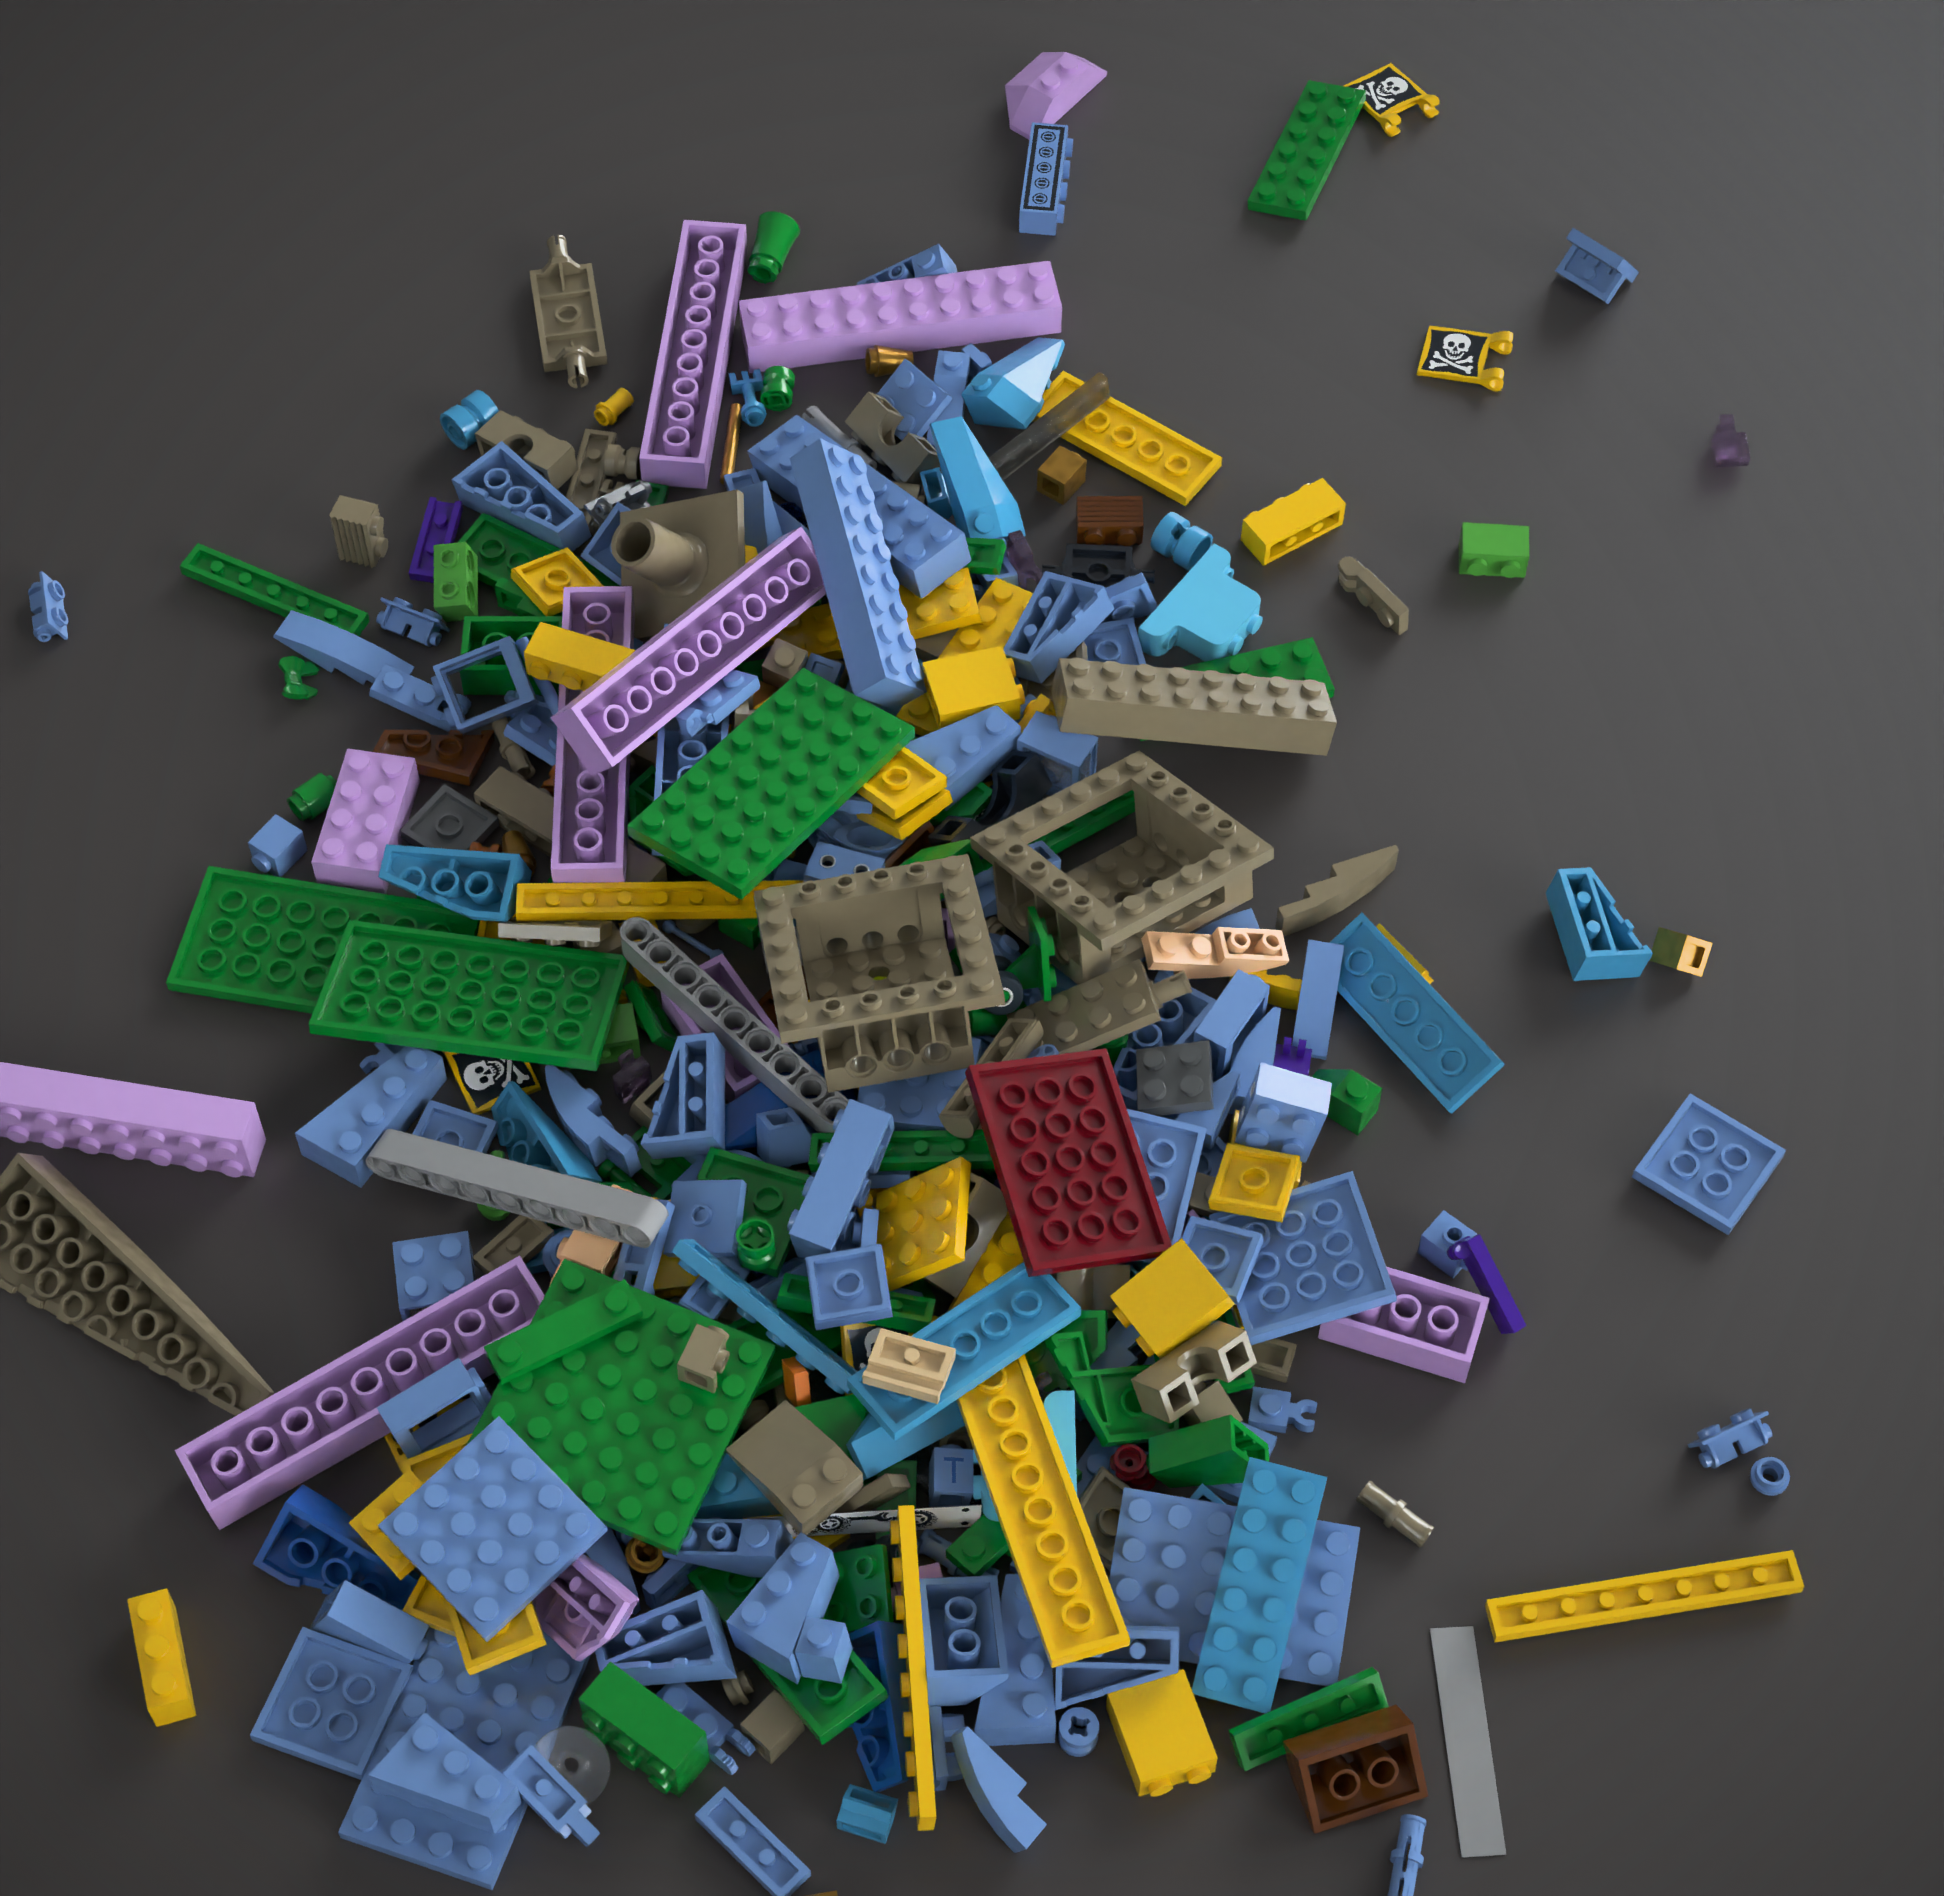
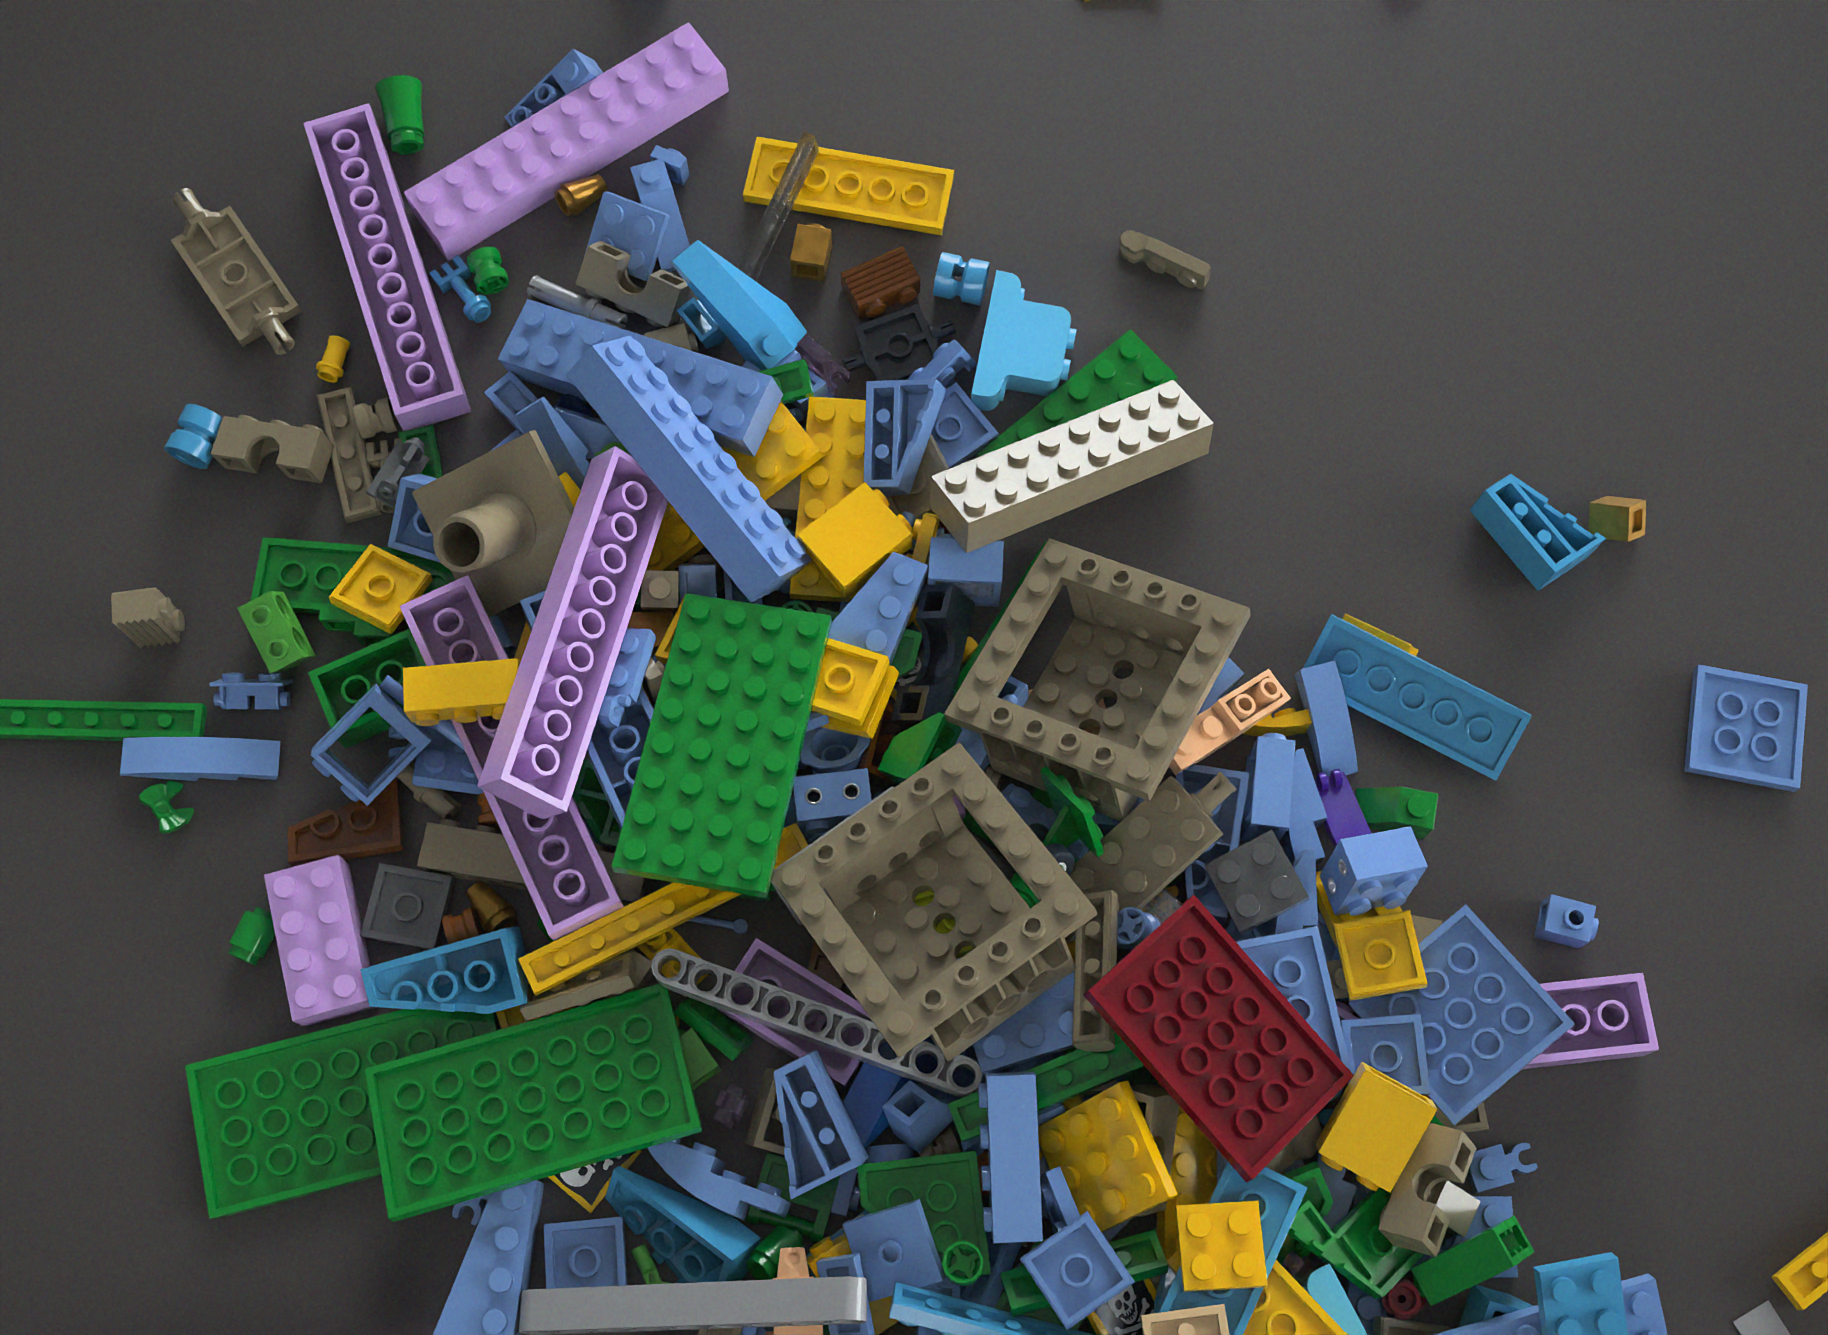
camera: 25 degrees left, 15 degrees up
(277, 846) = (244, 1010): medium blue brick -> none
(413, 696) = (294, 777): medium blue plate -> none
(437, 528) = (227, 584): dark purple hinge -> none
(518, 495) = (289, 506): medium blue wedge -> none
(731, 441) = (470, 348): pearl gold bar -> none
(979, 1315) = (1221, 1246): none -> yellow plate
(1013, 387) = (719, 173): dark azure wedge -> none
(1292, 521) = (1051, 211): yellow brick -> none
(1346, 885) = (1289, 584): dark tan slope -> none
(1395, 1513) = (1652, 1224): dark tan pin -> none
(1488, 1282) = (1628, 952): dark purple hinge -> none
(1493, 550) = (1250, 164): bright green brick -> none

